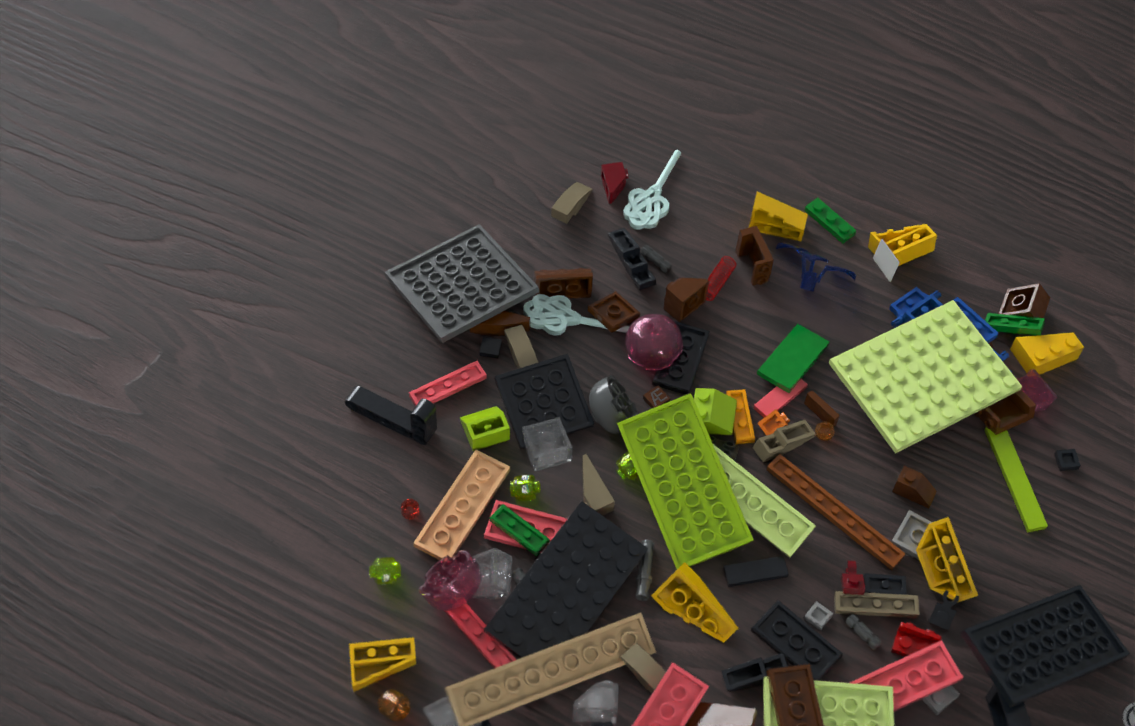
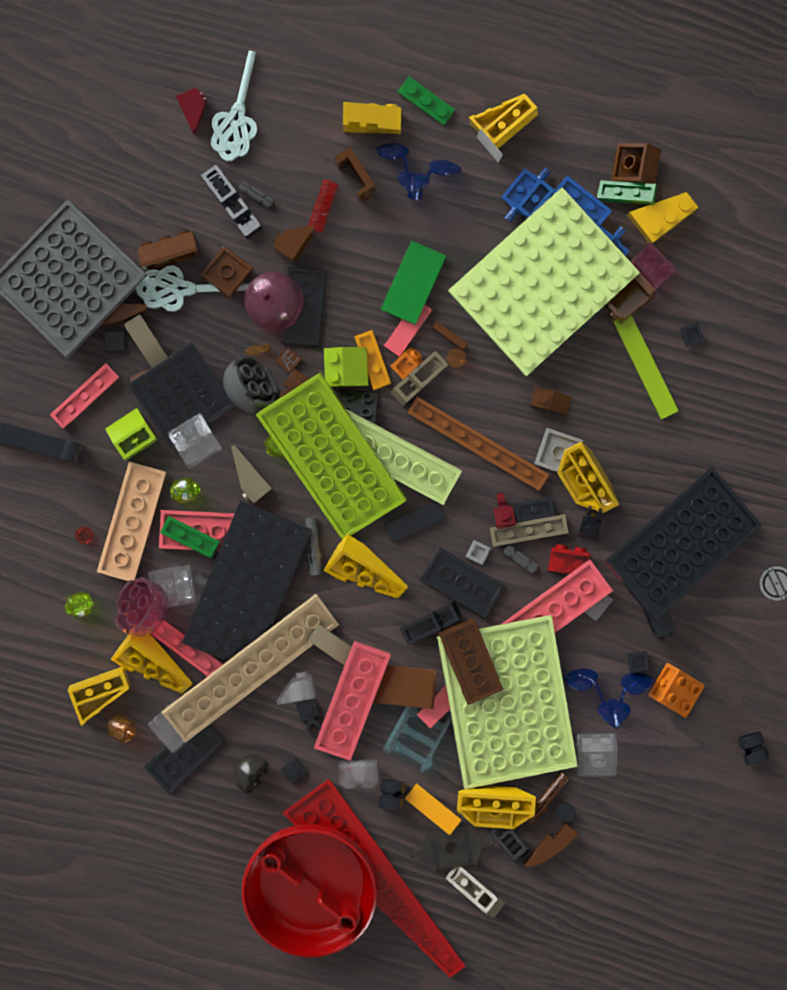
camera: 10 degrees left, 30 degrees up
(443, 641) = (150, 659): none -> yellow wedge
(570, 202) = (154, 145): dark tan slope -> none
(636, 381) = (254, 350): none -> clear orange piece

